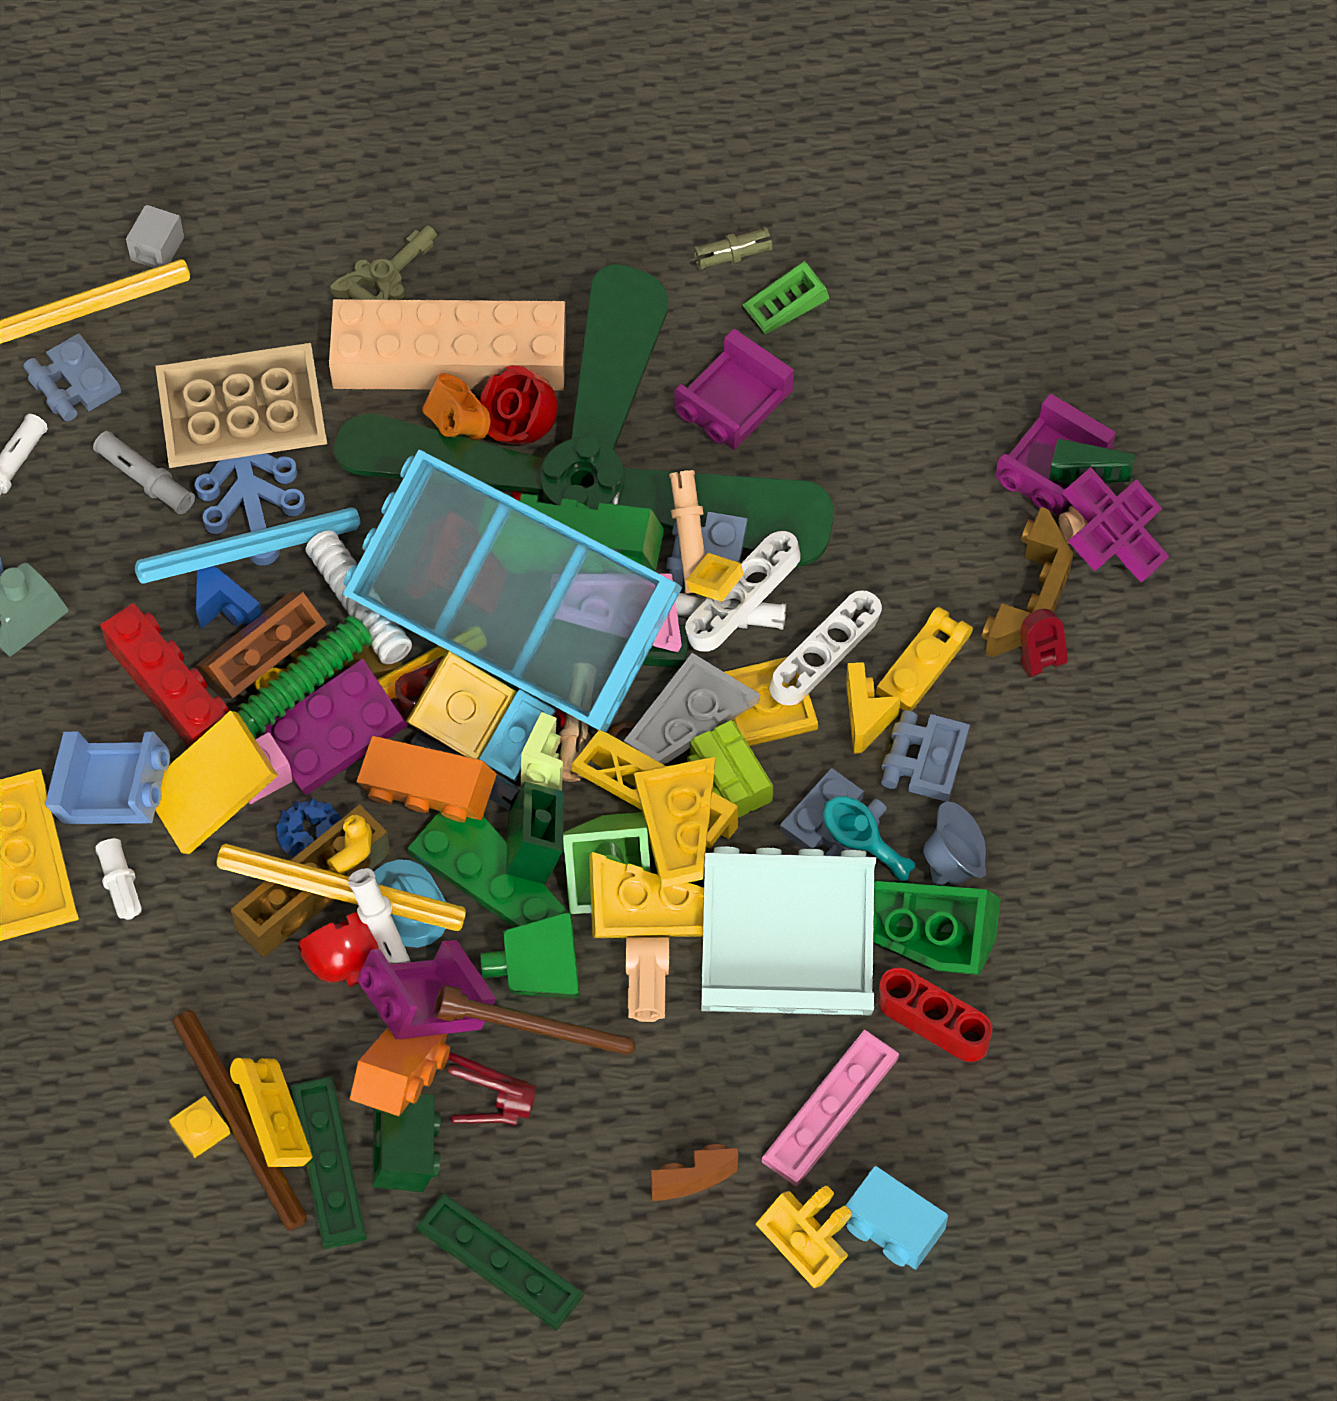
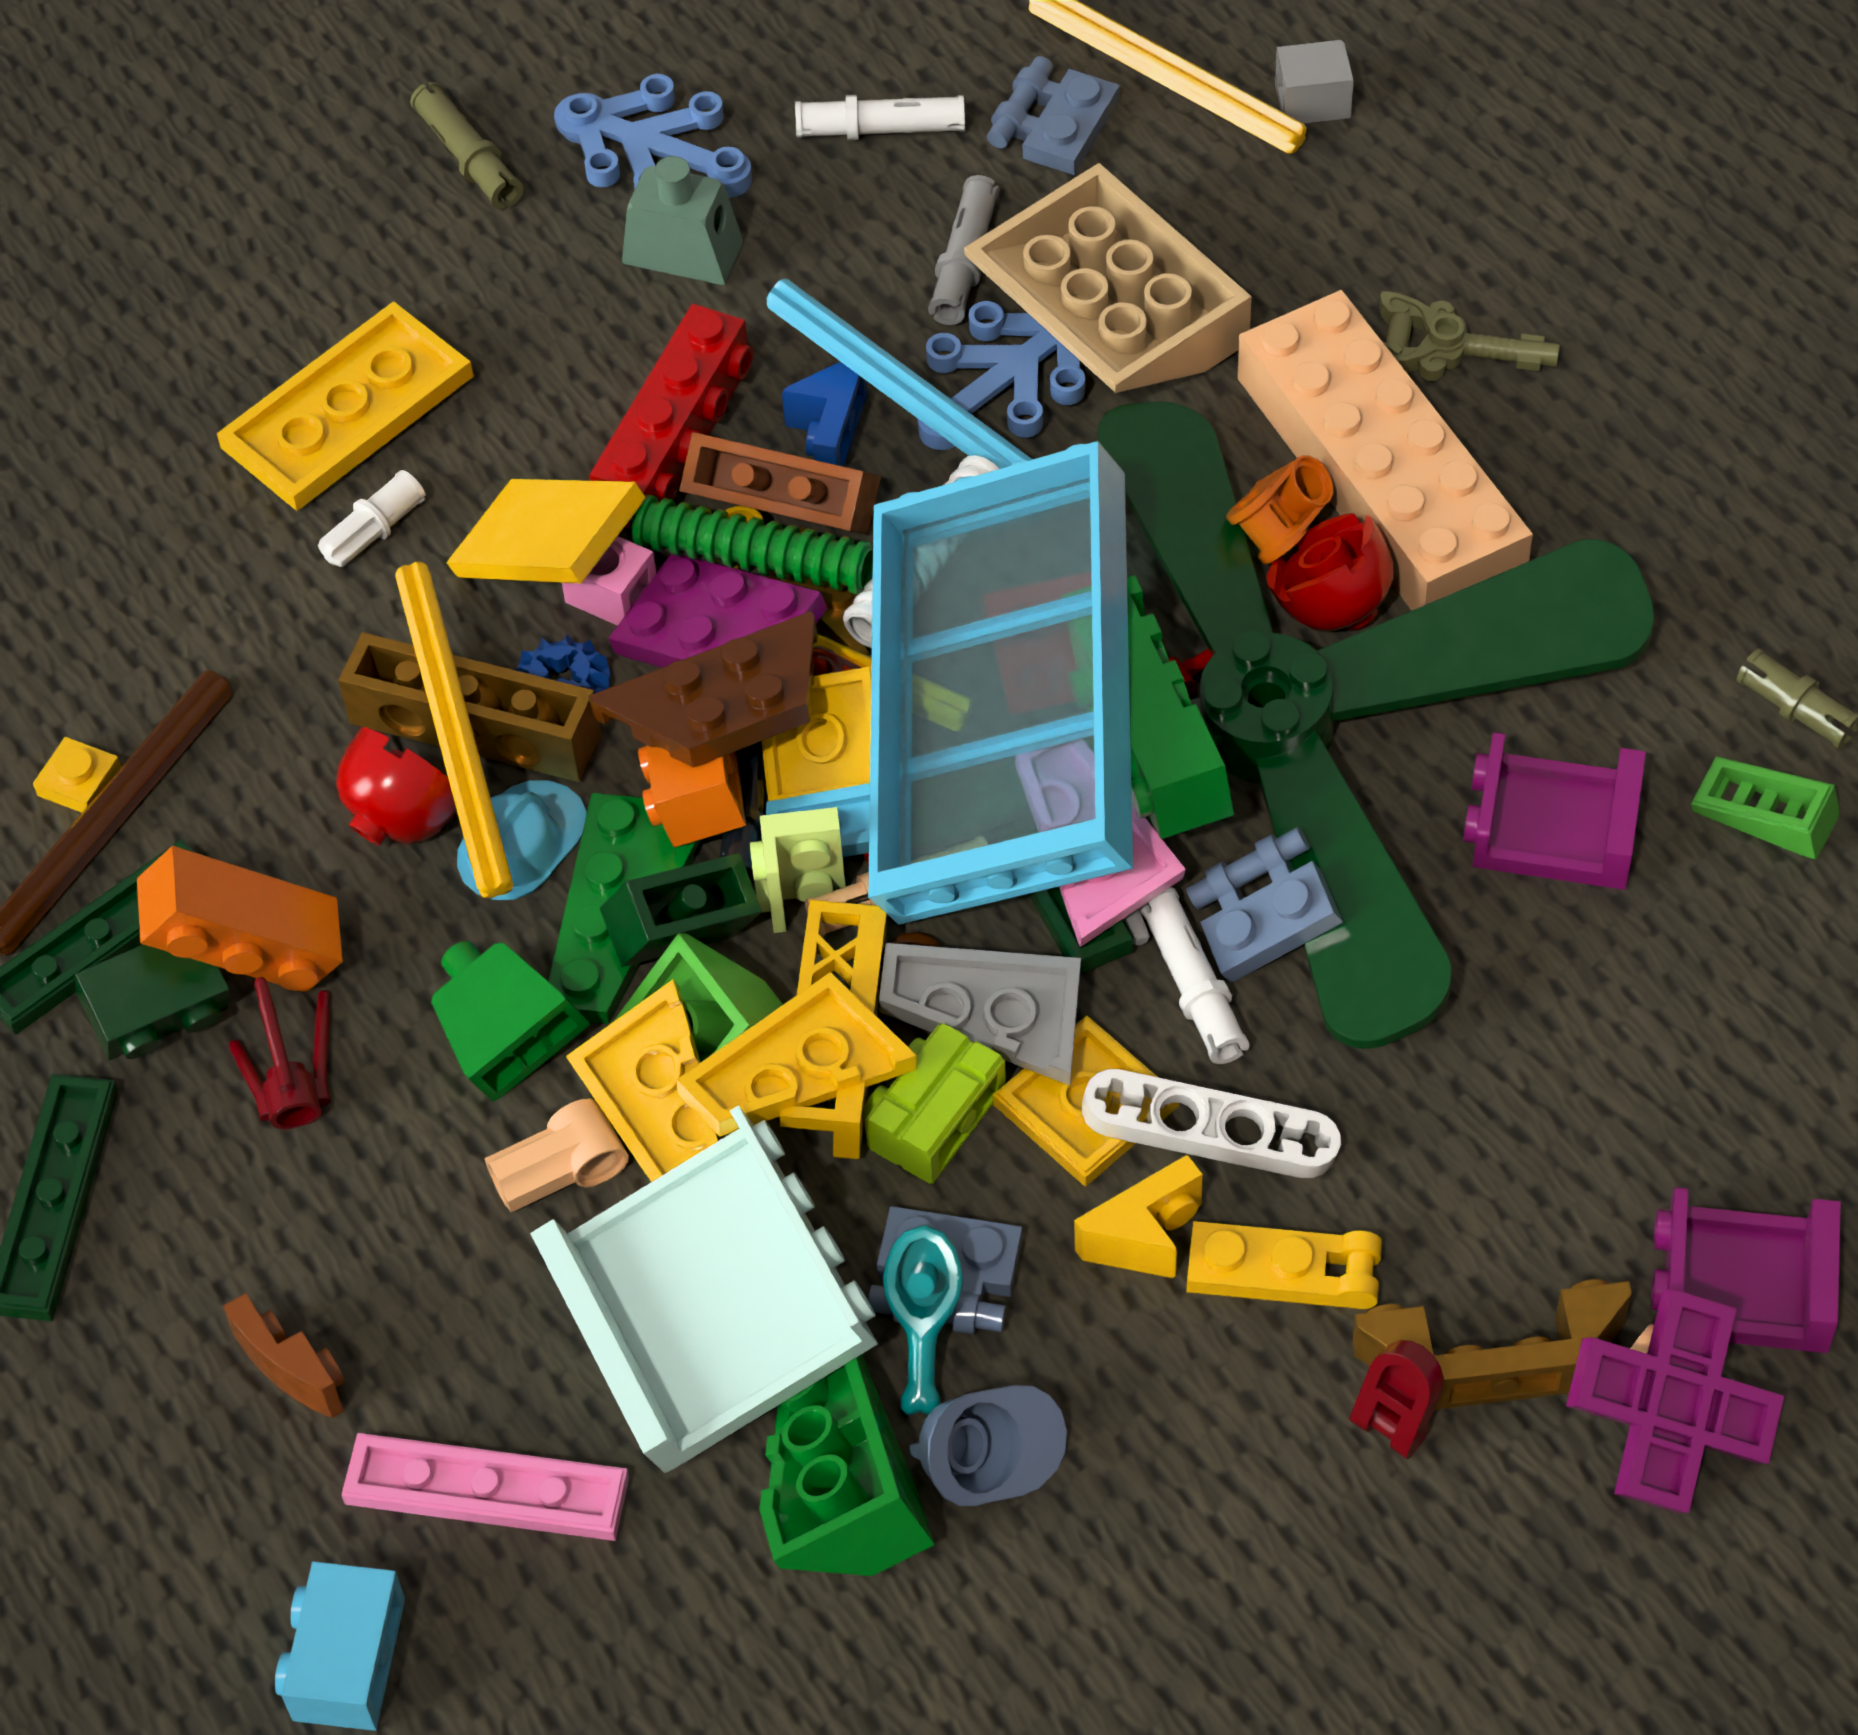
camera: 65 degrees right, 5 degrees down
(107, 780) = (491, 428): medium blue panel -> none
(271, 1111) = (121, 833): yellow plate -> none
(357, 845) = (519, 714): yellow arm -> none
(376, 912) = (431, 779): white pin -> none
(408, 991) = (361, 902): magenta panel -> none
(416, 736) = (721, 695): none -> reddish brown wing
(454, 1004) = (350, 932): reddish brown piece -> none
(688, 521) = (1256, 851): light nougat pin -> none
(714, 577) = (1200, 914): yellow plate -> none
(748, 593) = (1220, 961): white beam -> none
(802, 1238) = (254, 1541): yellow hinge -> none
(926, 996) = (691, 1516): red beam -> none
(937, 760) = (1123, 1355): sand blue plate -> none
(1074, 458) = (1742, 1281): dark green slope -> none

